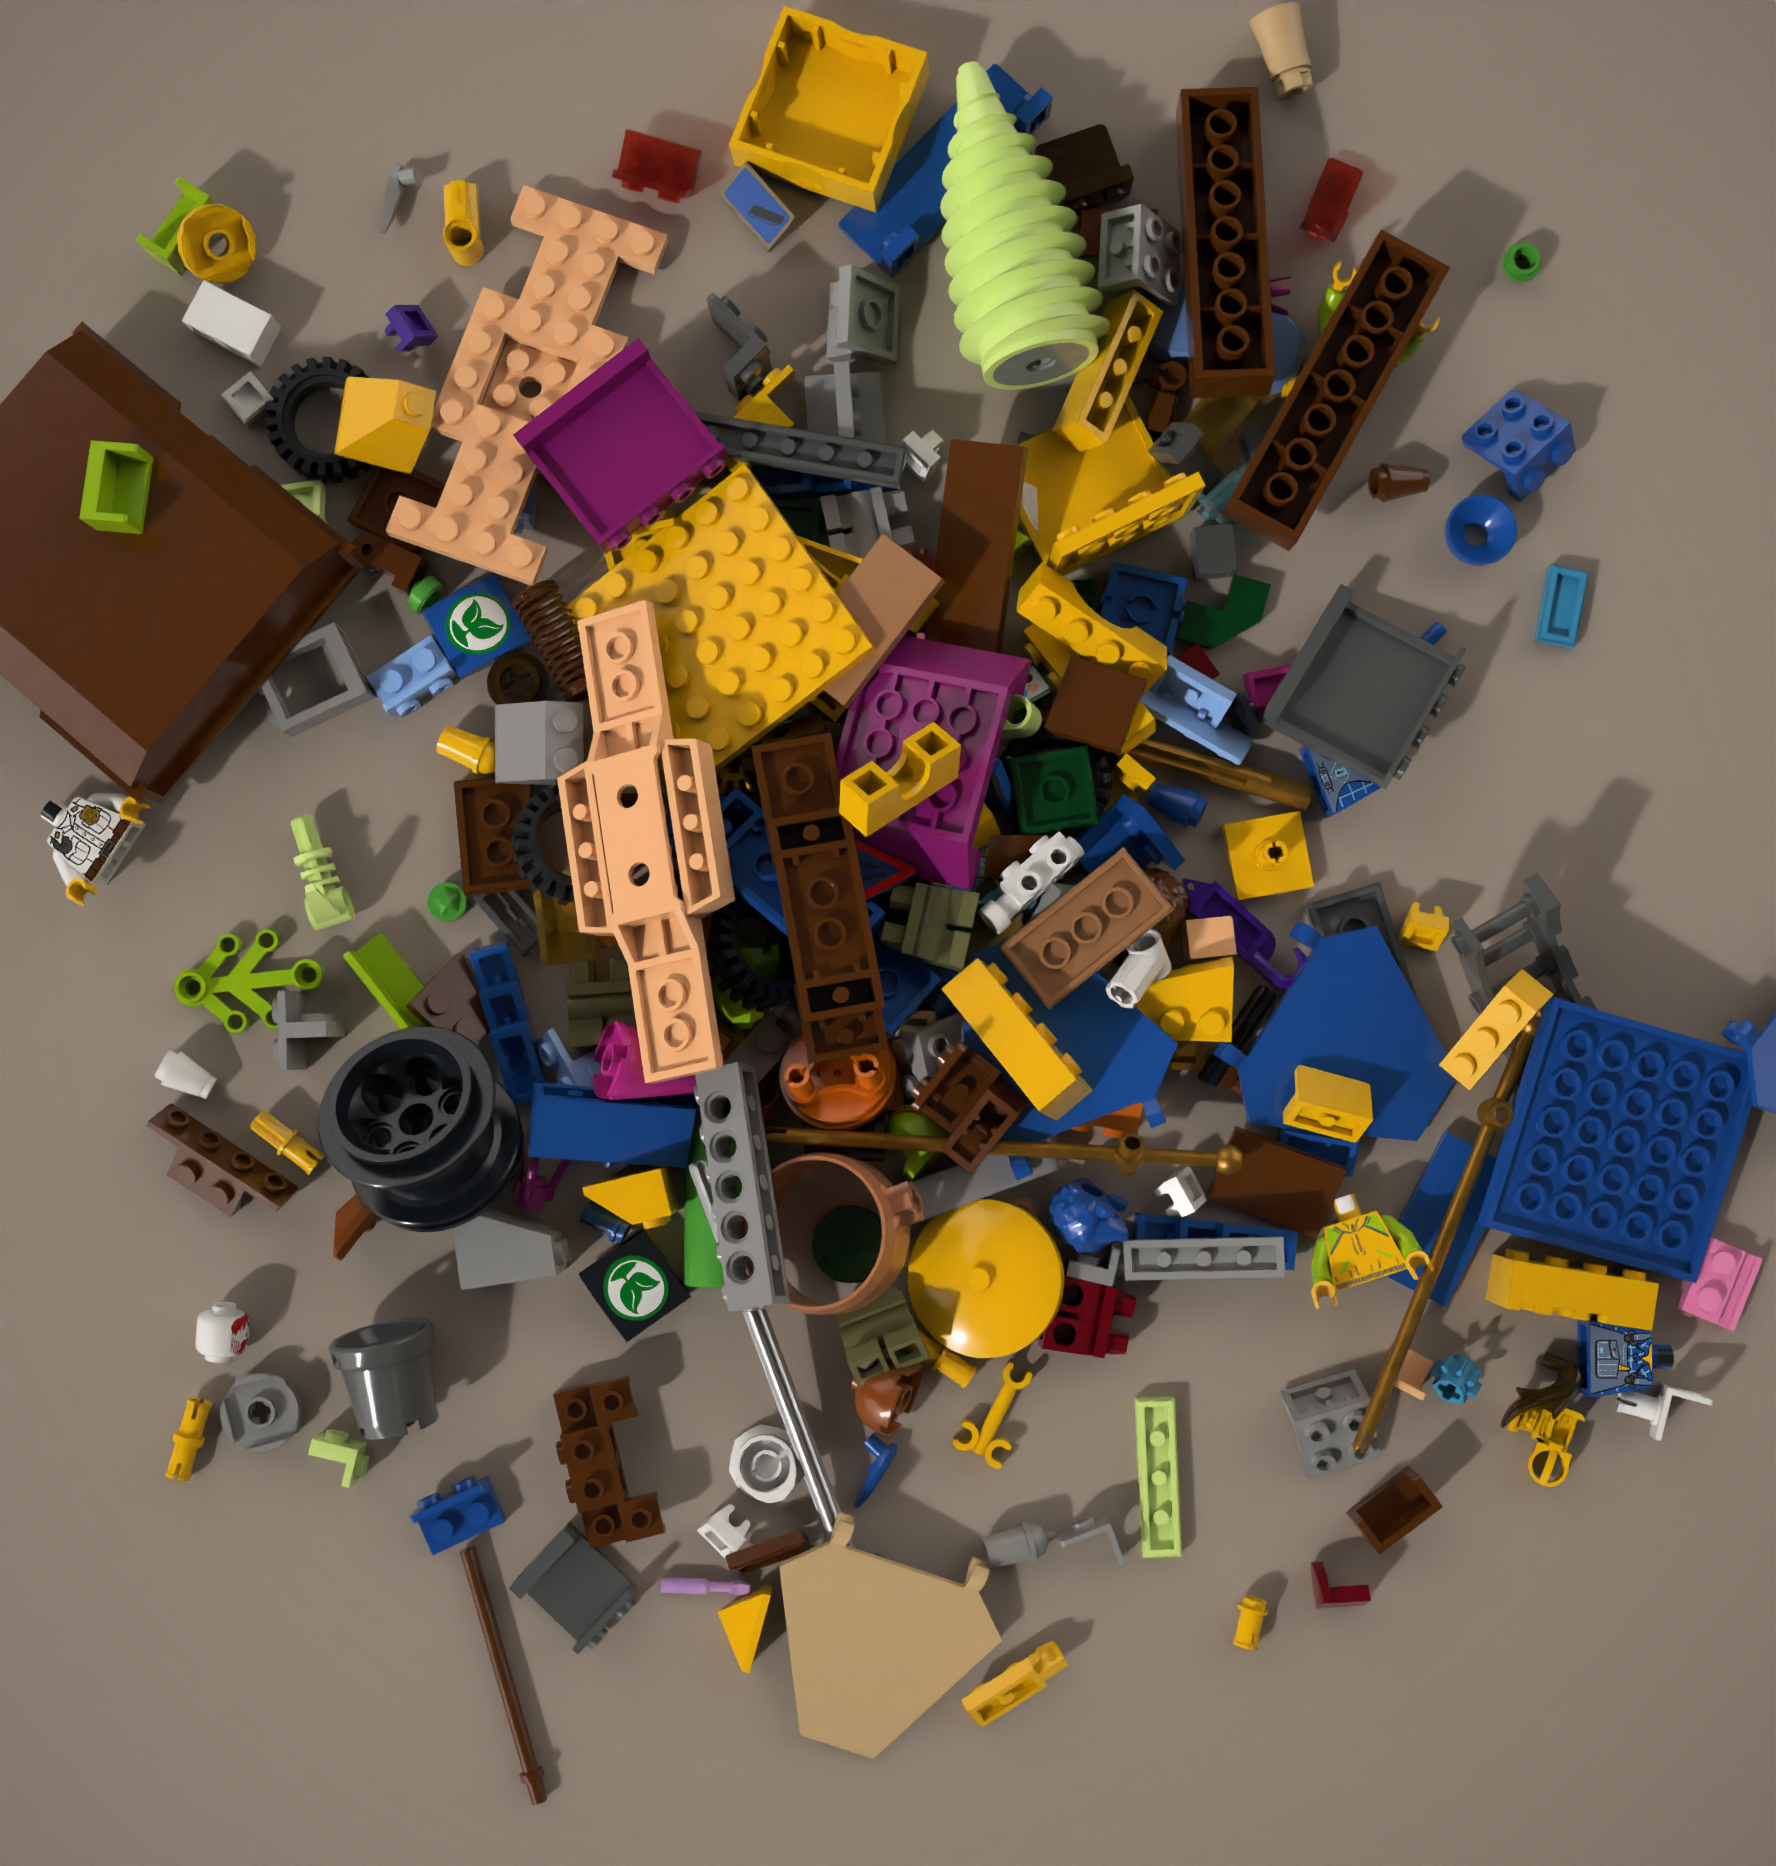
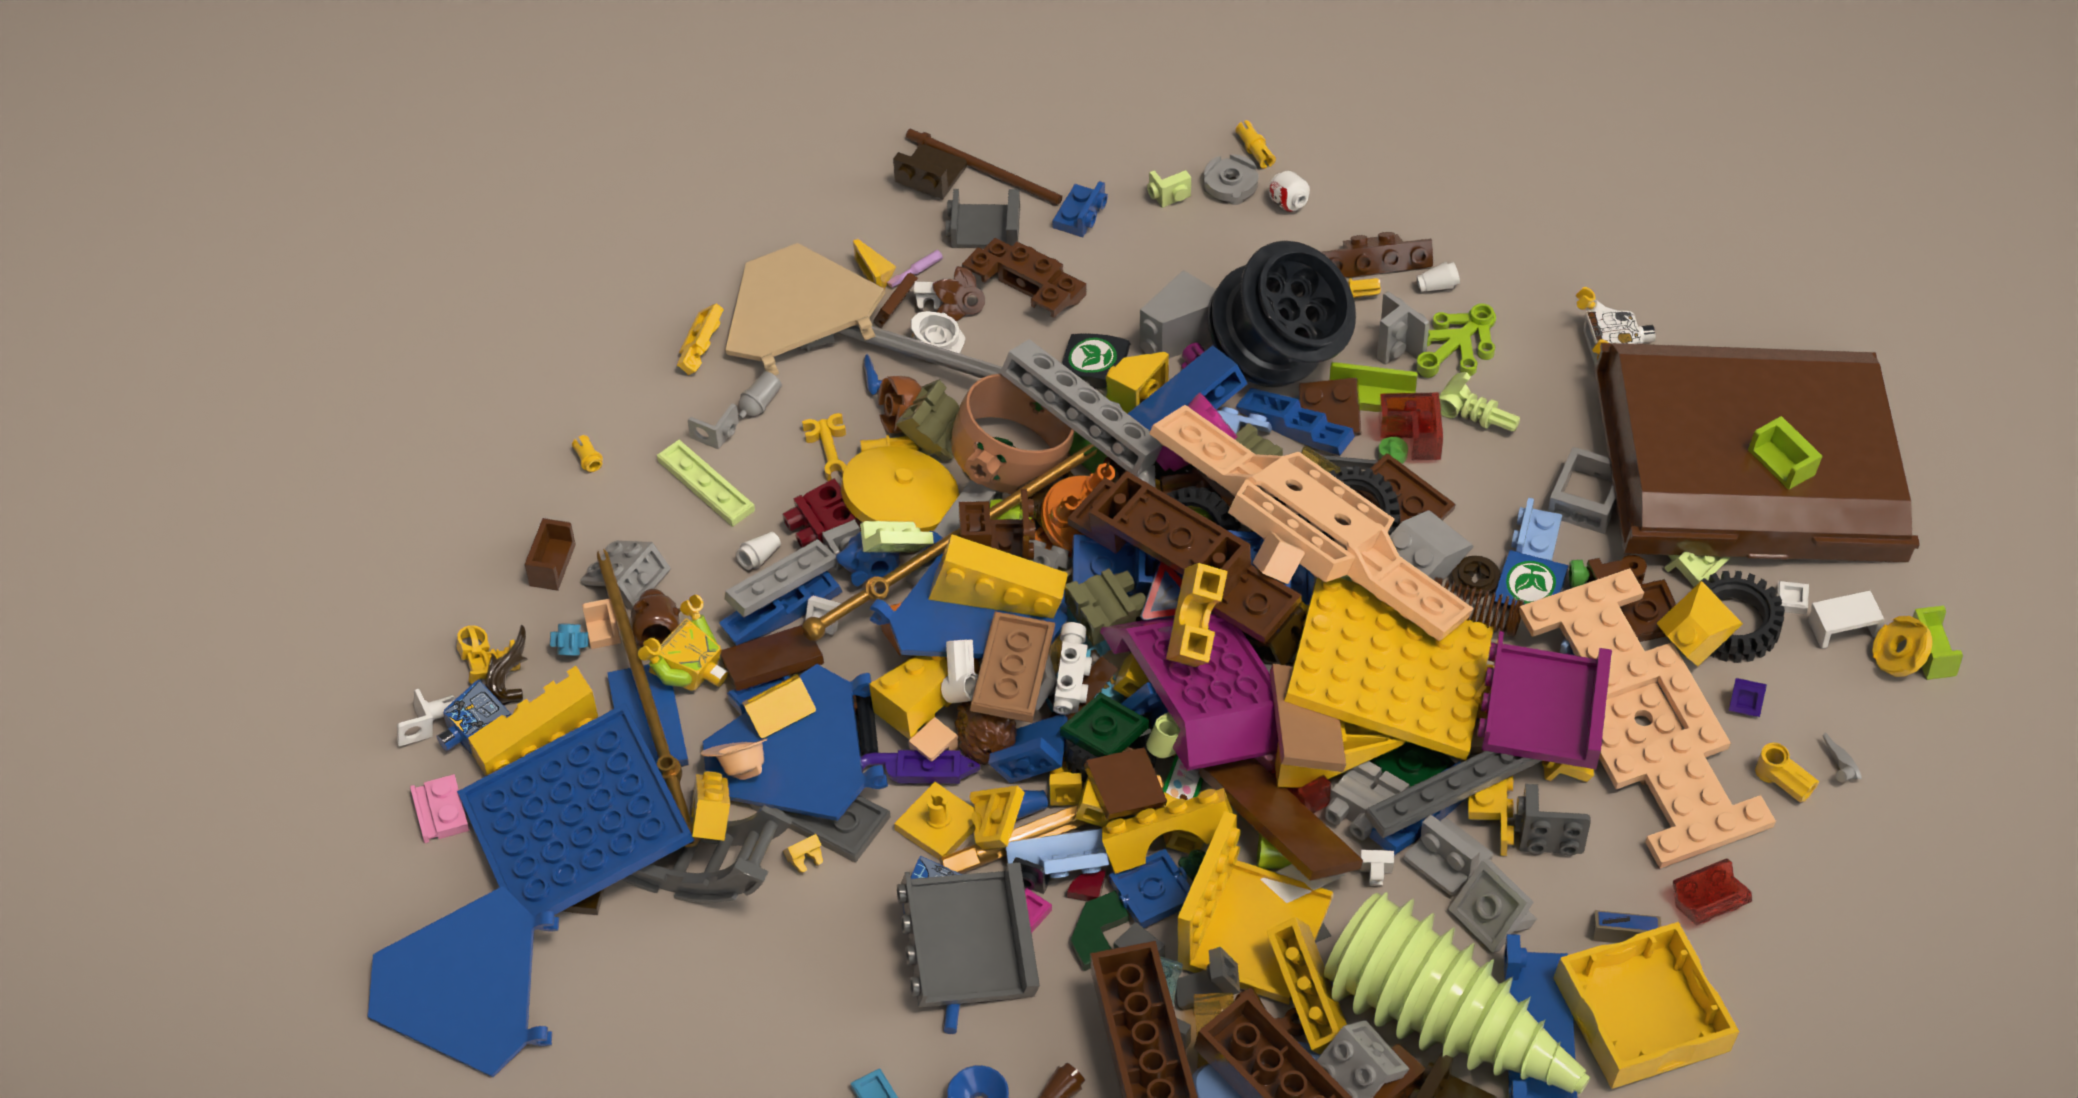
camera: 140 degrees right, 35 degrees down
(388, 1375) = (1183, 225): dark grey piece -> none
(392, 900) = (1416, 418): none -> clear red brick
(467, 749) = (1468, 521): yellow piece -> none
(568, 1717) = (928, 170): none -> dark brown bracket
(704, 1497) = (955, 294): none -> reddish brown plate
(743, 804) = (1278, 558): none -> light nougat panel
(1066, 1193) = (893, 537): none -> yellowish green bracket
(1180, 1333) = (756, 551): none -> white cone
(1230, 795) = (995, 815): none -> yellow wing
(1336, 1596) = (547, 494): dark red tile -> none
(1358, 1326) = (654, 617): none -> reddish brown piece
(1415, 1081) = (739, 759): none -> light nougat piece

